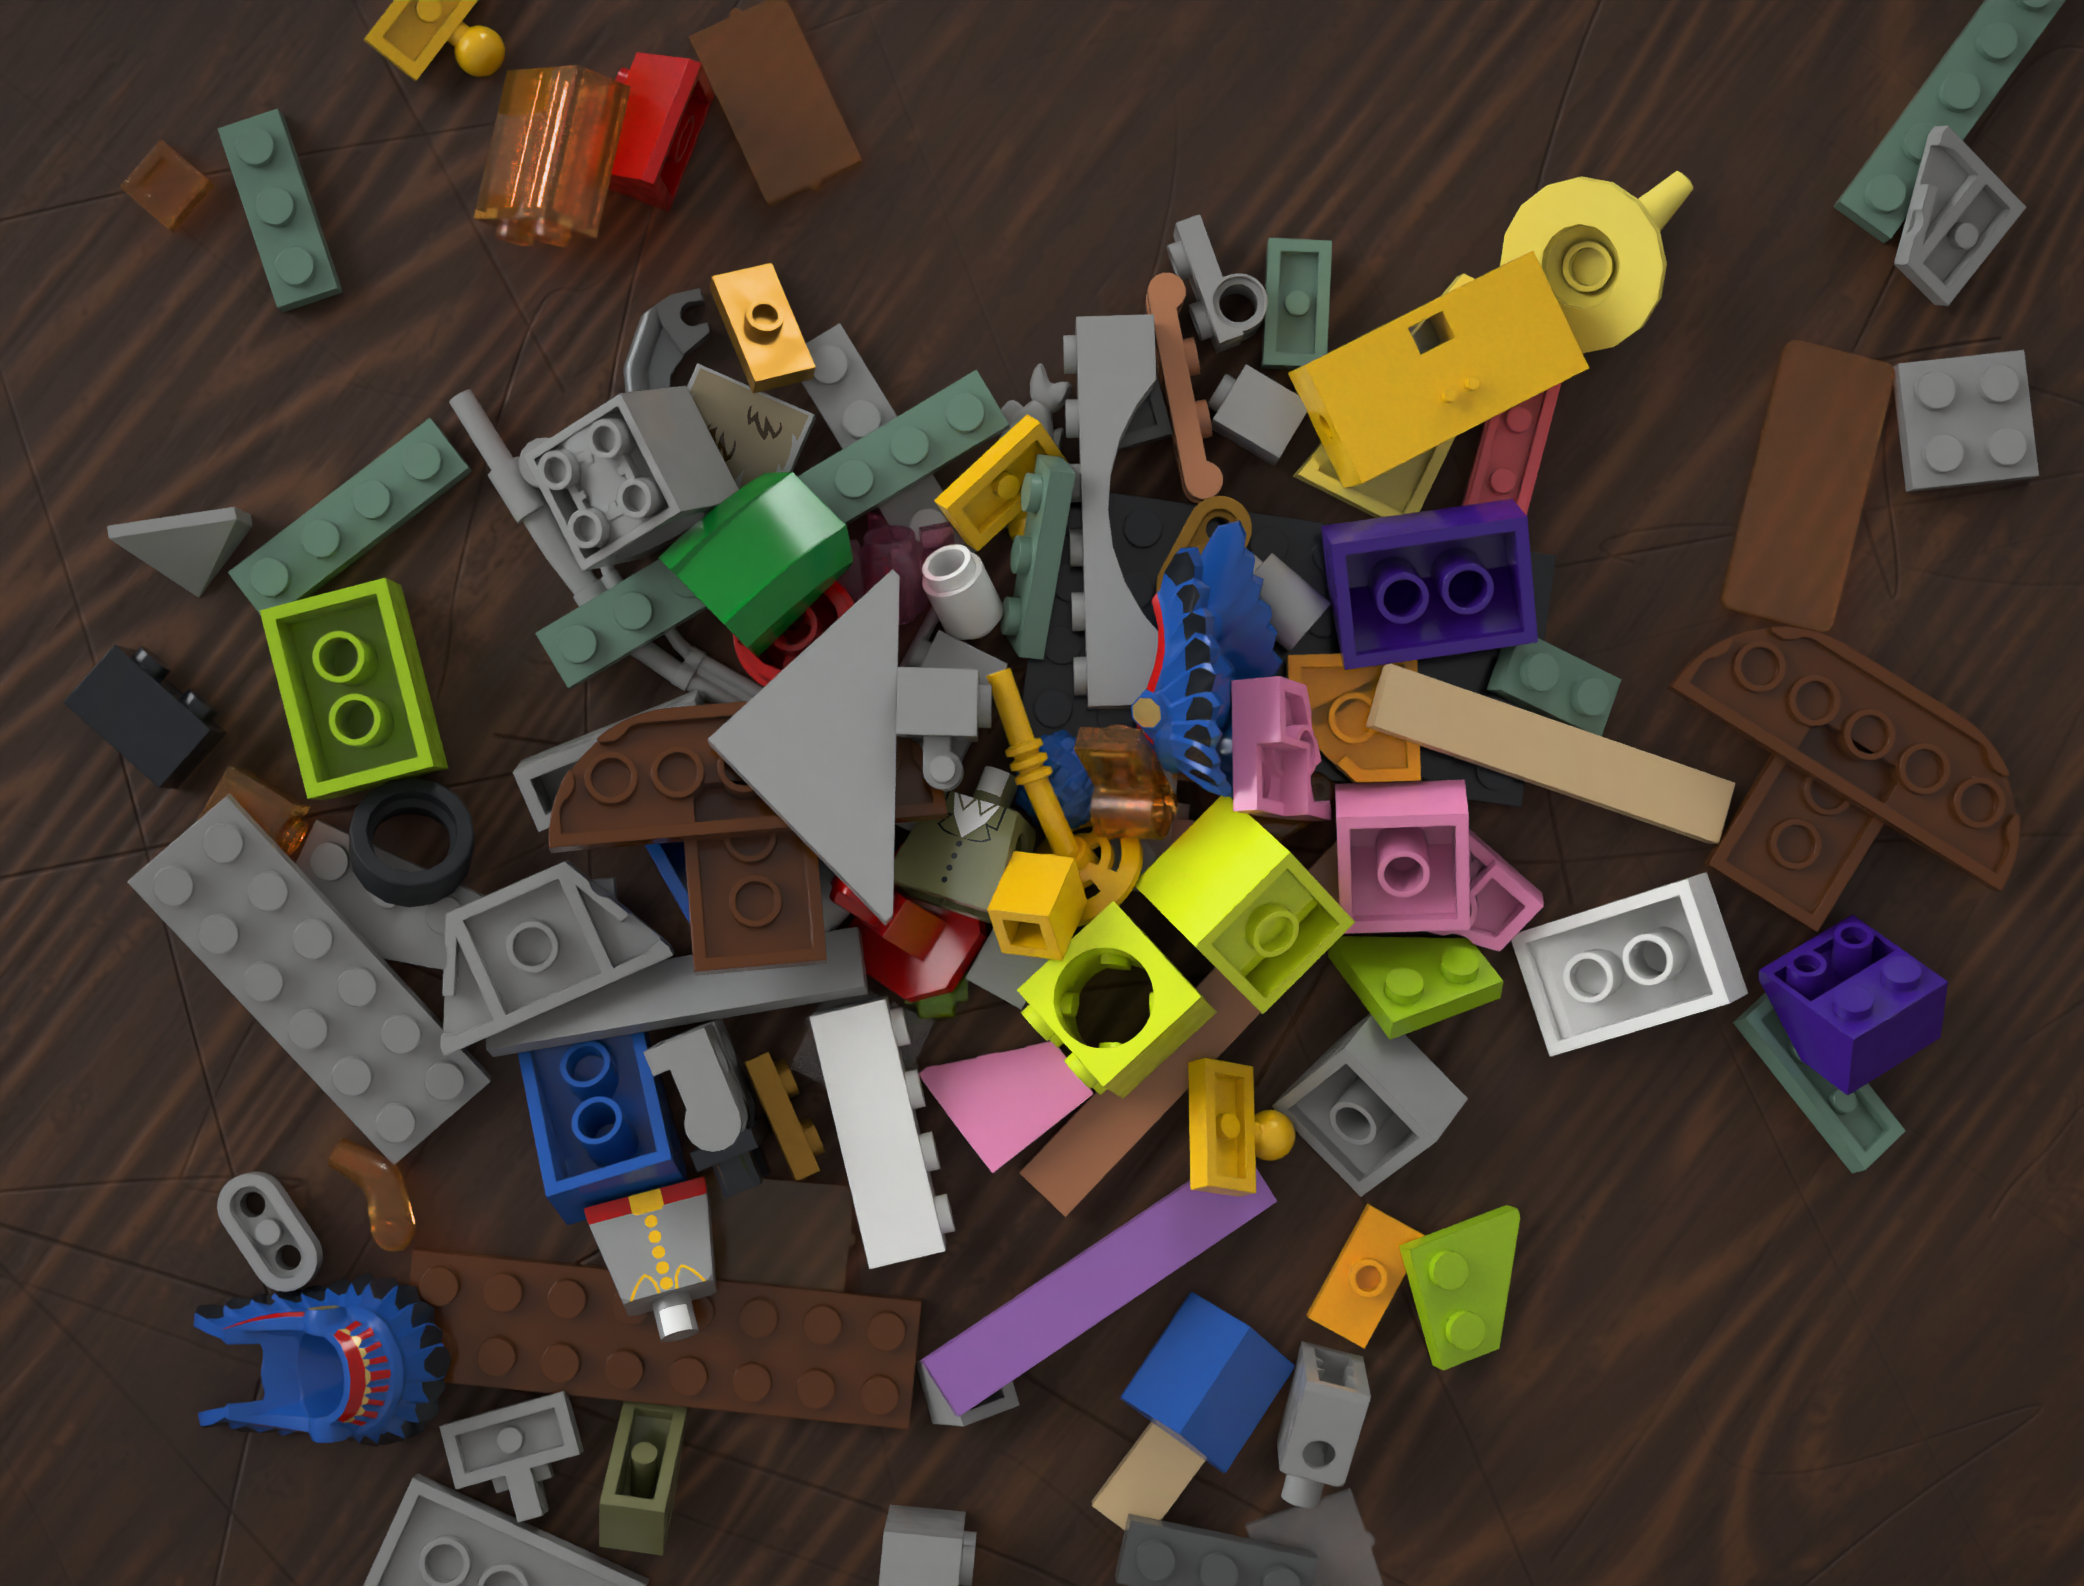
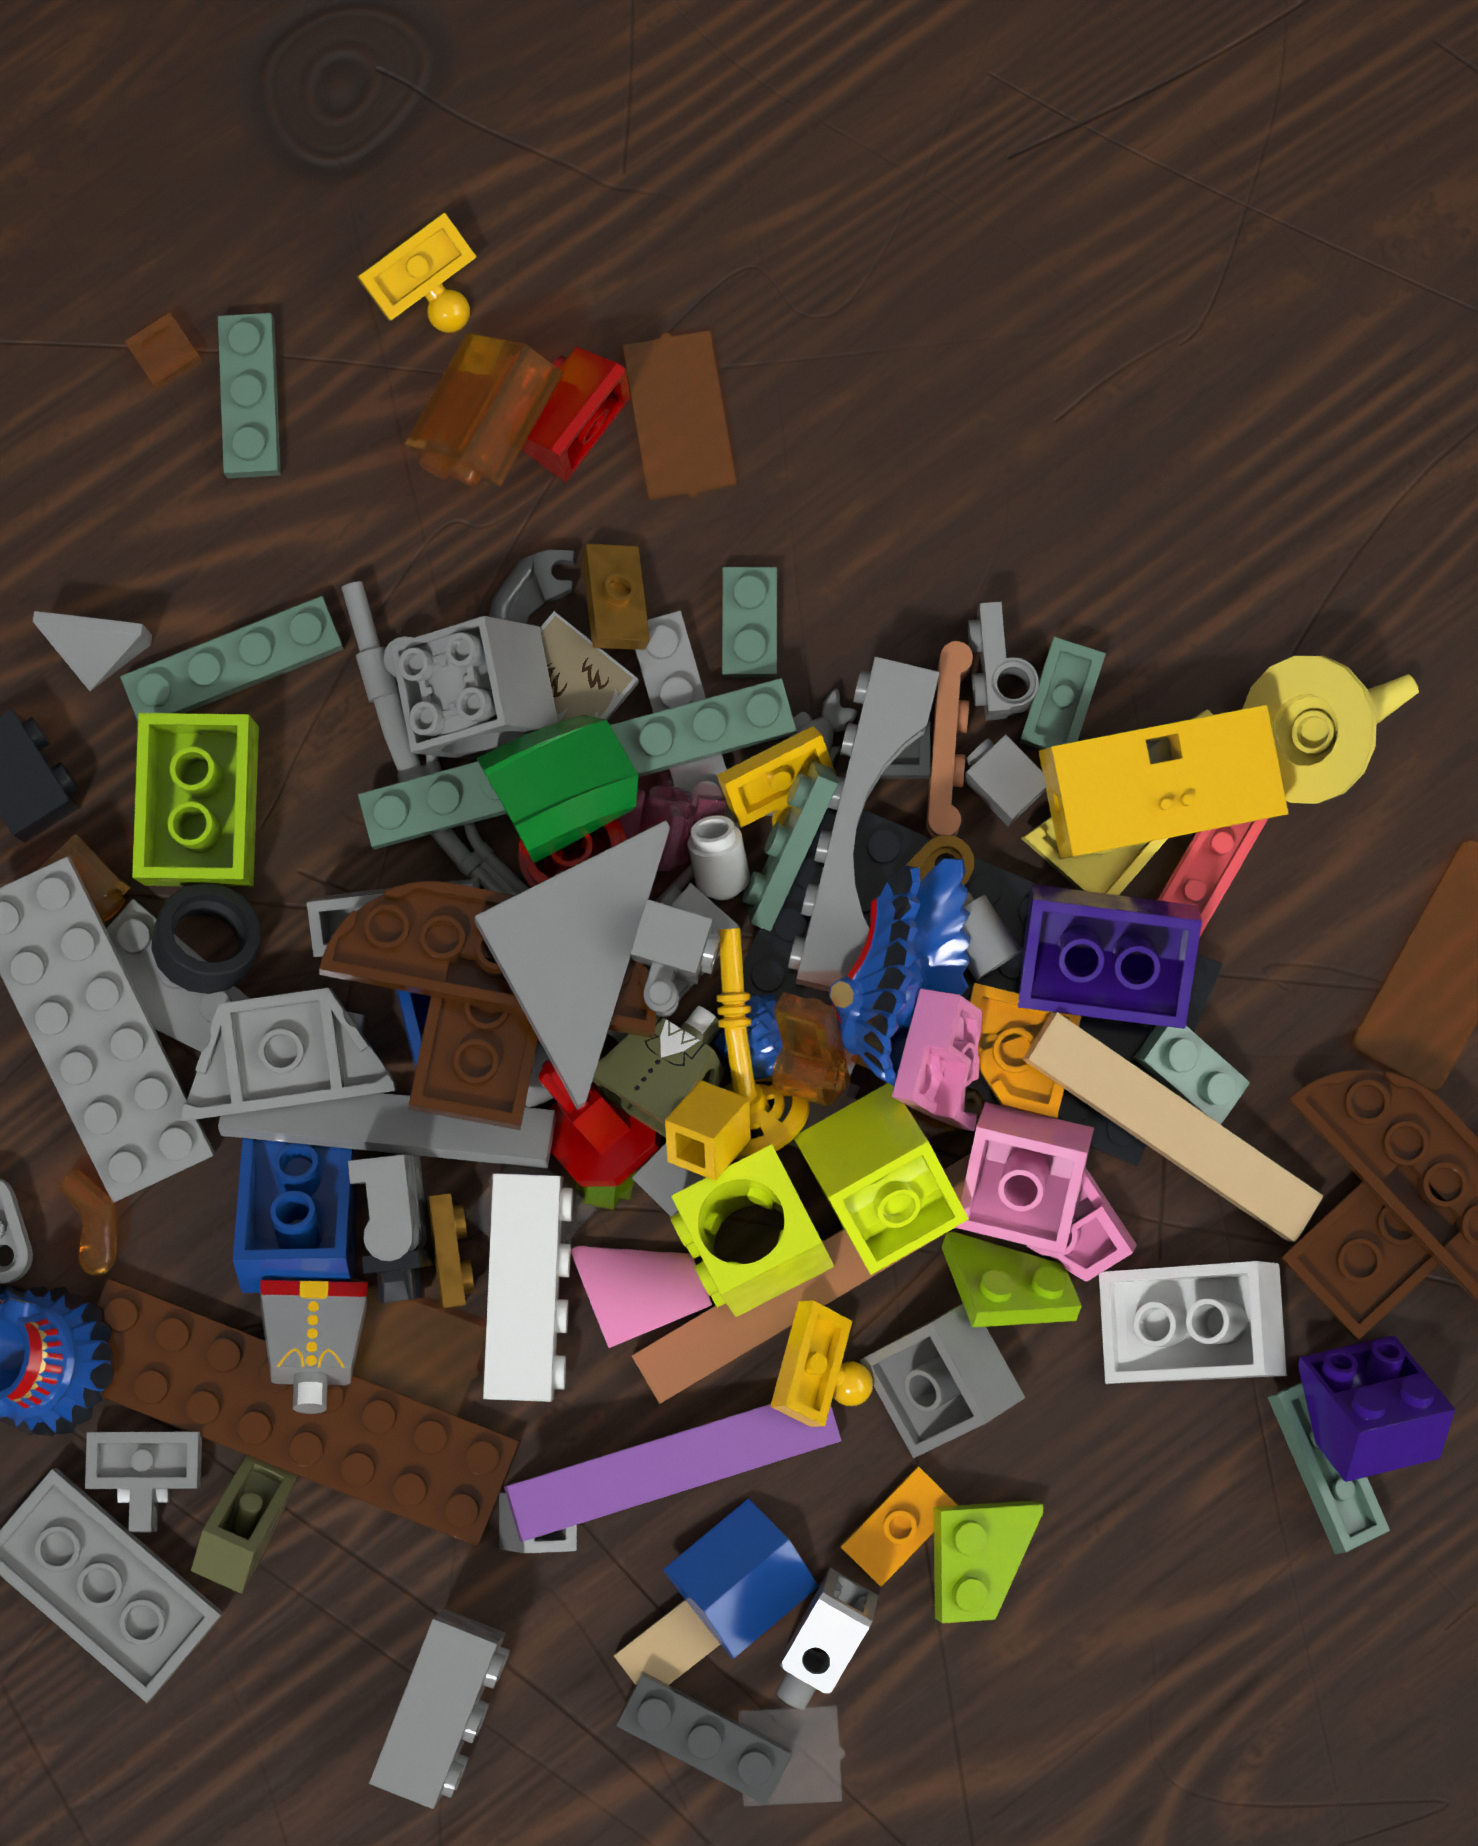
camera: 25 degrees right, 5 degrees down
(921, 315) = (749, 622): none -> sand green plate

